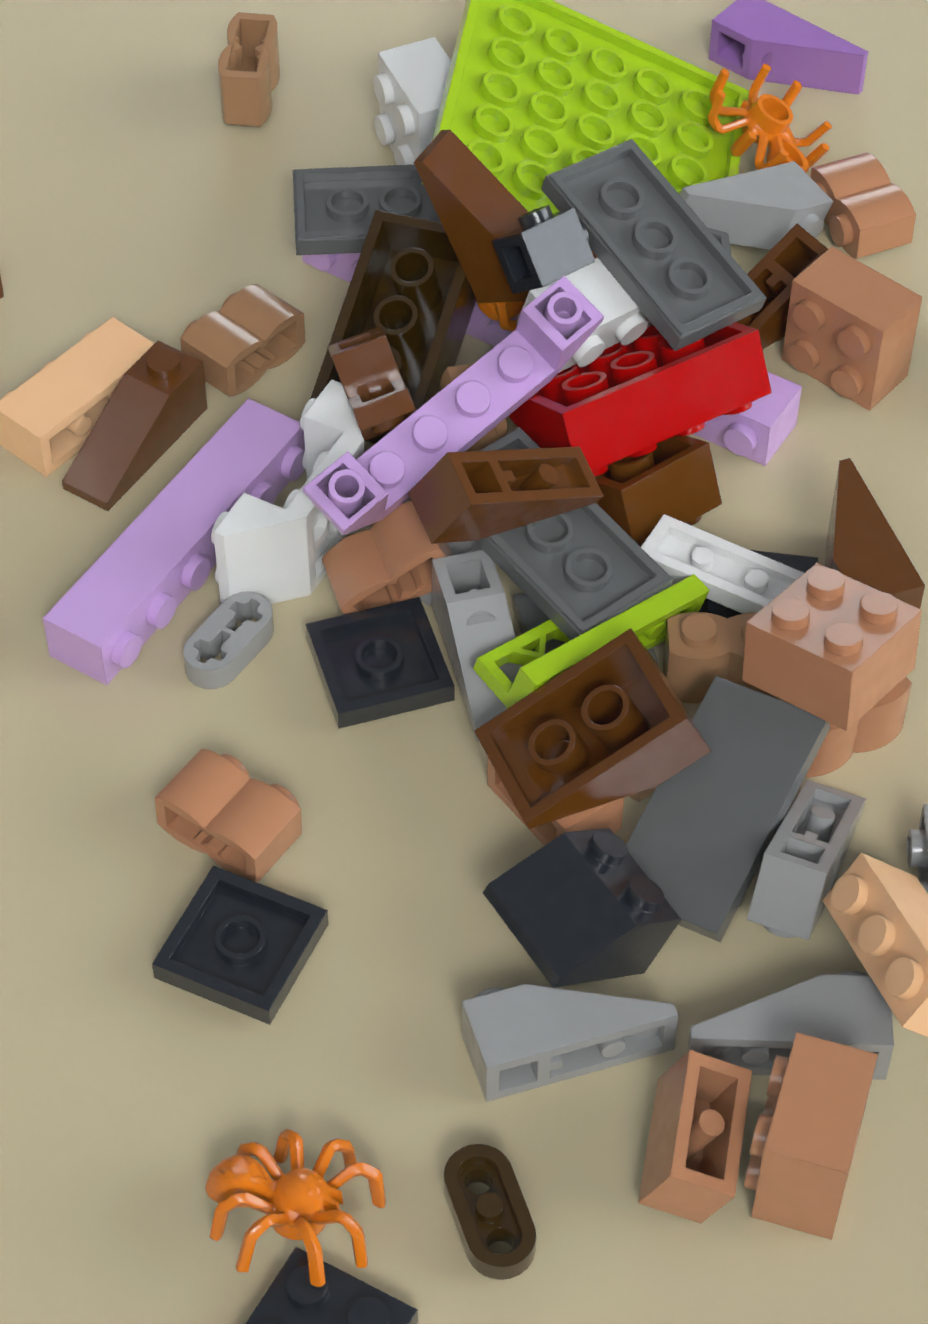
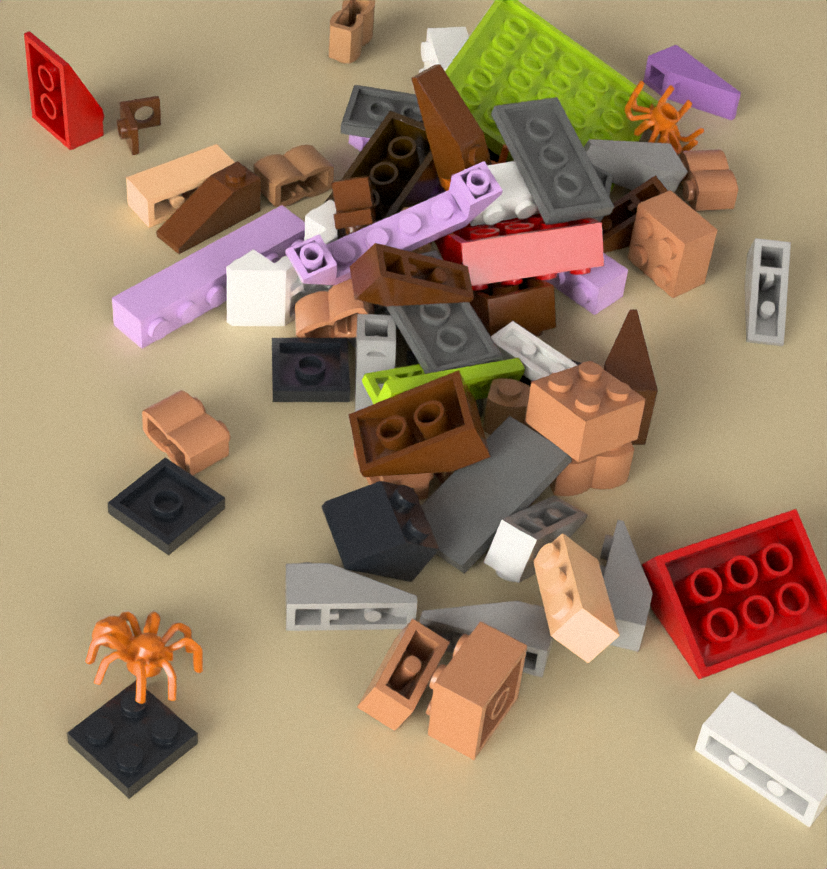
camera: 10 degrees right, 5 degrees down
(236, 645) = (223, 338): light grey beam -> none
(489, 1216) = (262, 692): dark brown plate -> none
(543, 248) = (479, 144): brick -> none

